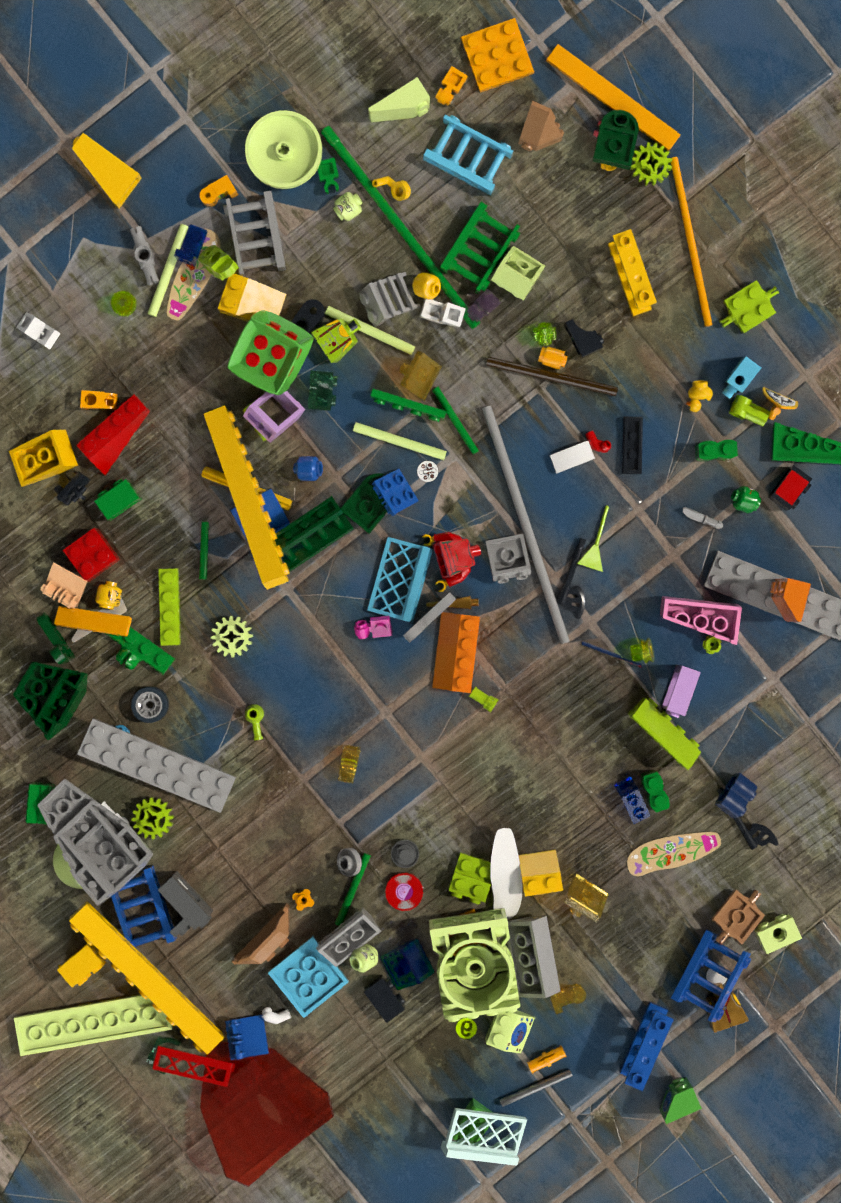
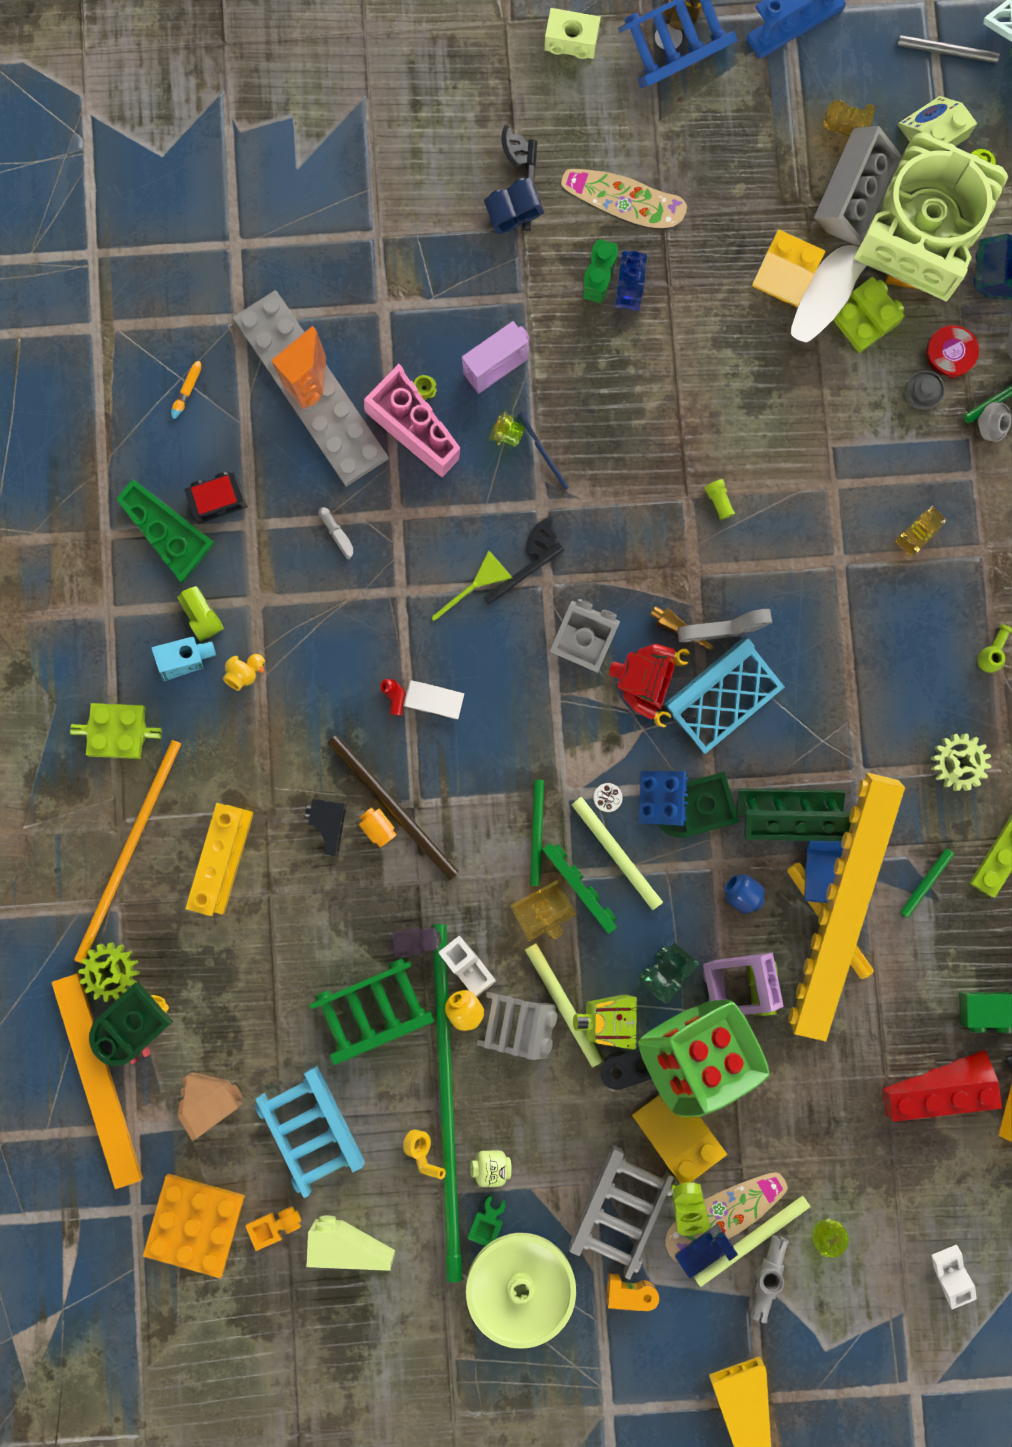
camera: 140 degrees left, 5 degrees down
(98, 400) = (938, 1143): light orange leg -> none
(378, 626) = (784, 659): dark pink plate -> none
(456, 652) = (716, 570): orange slope -> none
(518, 273) = (348, 952): yellowish green slope -> none
(526, 526) = (538, 661): light grey piece -> none
(544, 333) = (367, 860): clear neon green gear -> none
(546, 1059) = (933, 73): light orange pin -> none
(585, 898) = (757, 205): clear yellow tile -> none
(632, 445) = (357, 666): black tile -> none
(665, 733) = (545, 324): lime slope -> none
(712, 450) = (262, 592): green brick -> none
(738, 917) = (603, 78): medium nougat plate -> none
(745, 499) = (274, 518): green head -> none
(779, 402) = (158, 599): shield -> none

